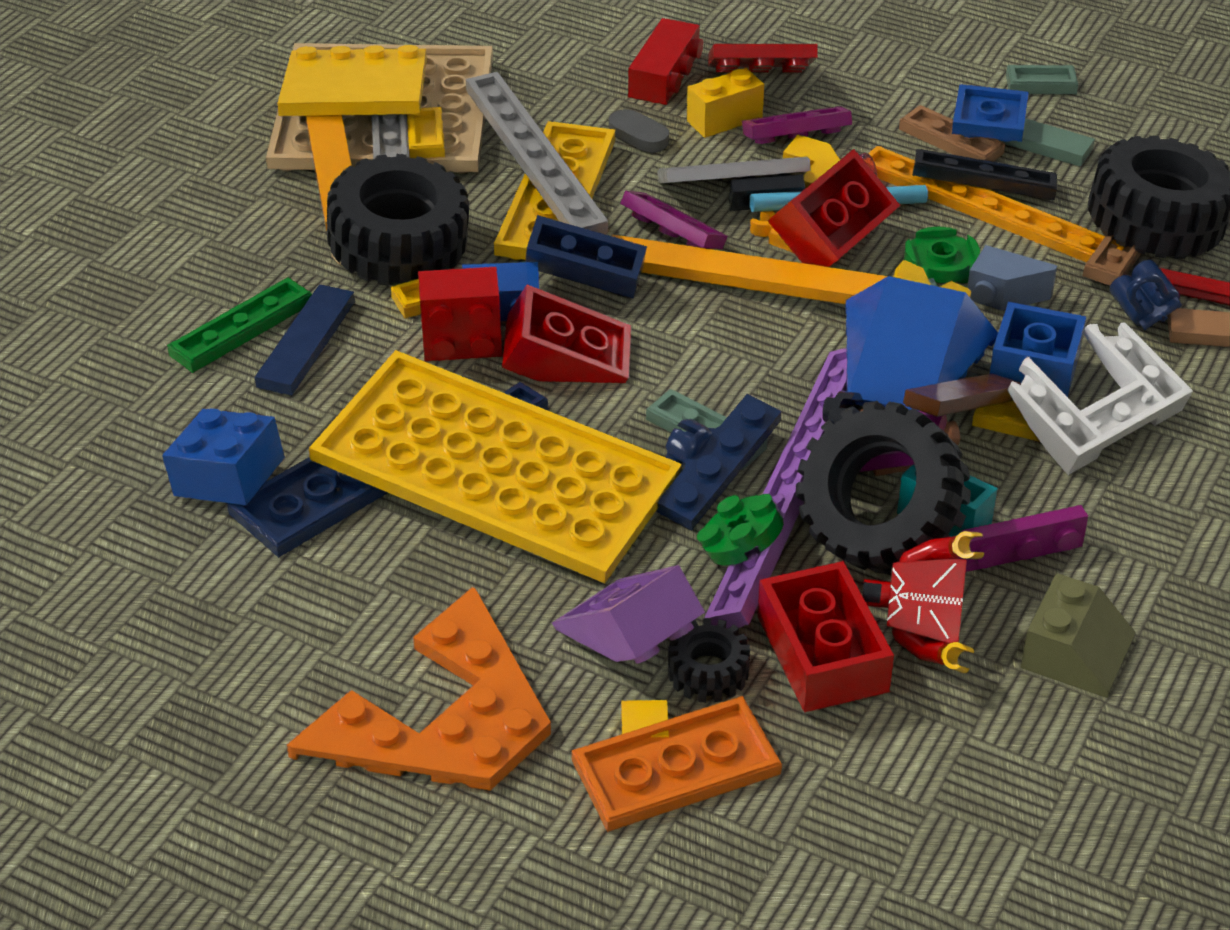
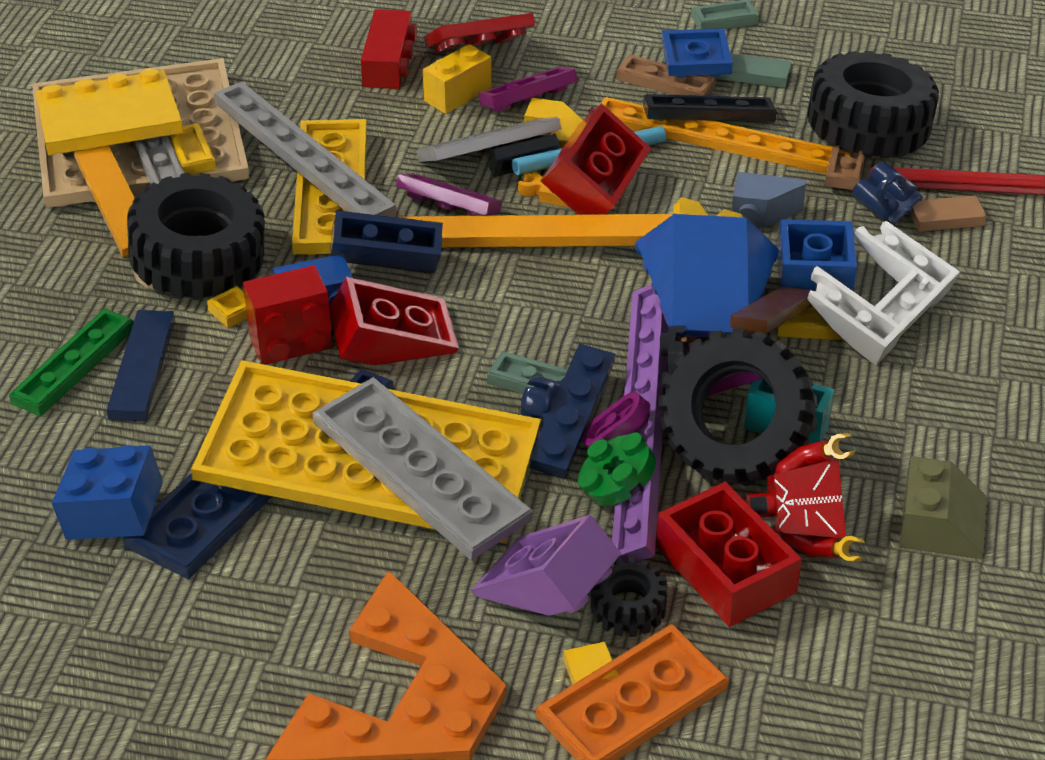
camera: 15 degrees left, 0 degrees up
(540, 491) = (423, 468): none -> light grey tile
(639, 130) = (386, 116): dark grey tile -> none
(764, 477) = (621, 418): none -> magenta plate
(956, 258) = (712, 188): green plate -> none
(1028, 537) = (872, 424): magenta plate -> none

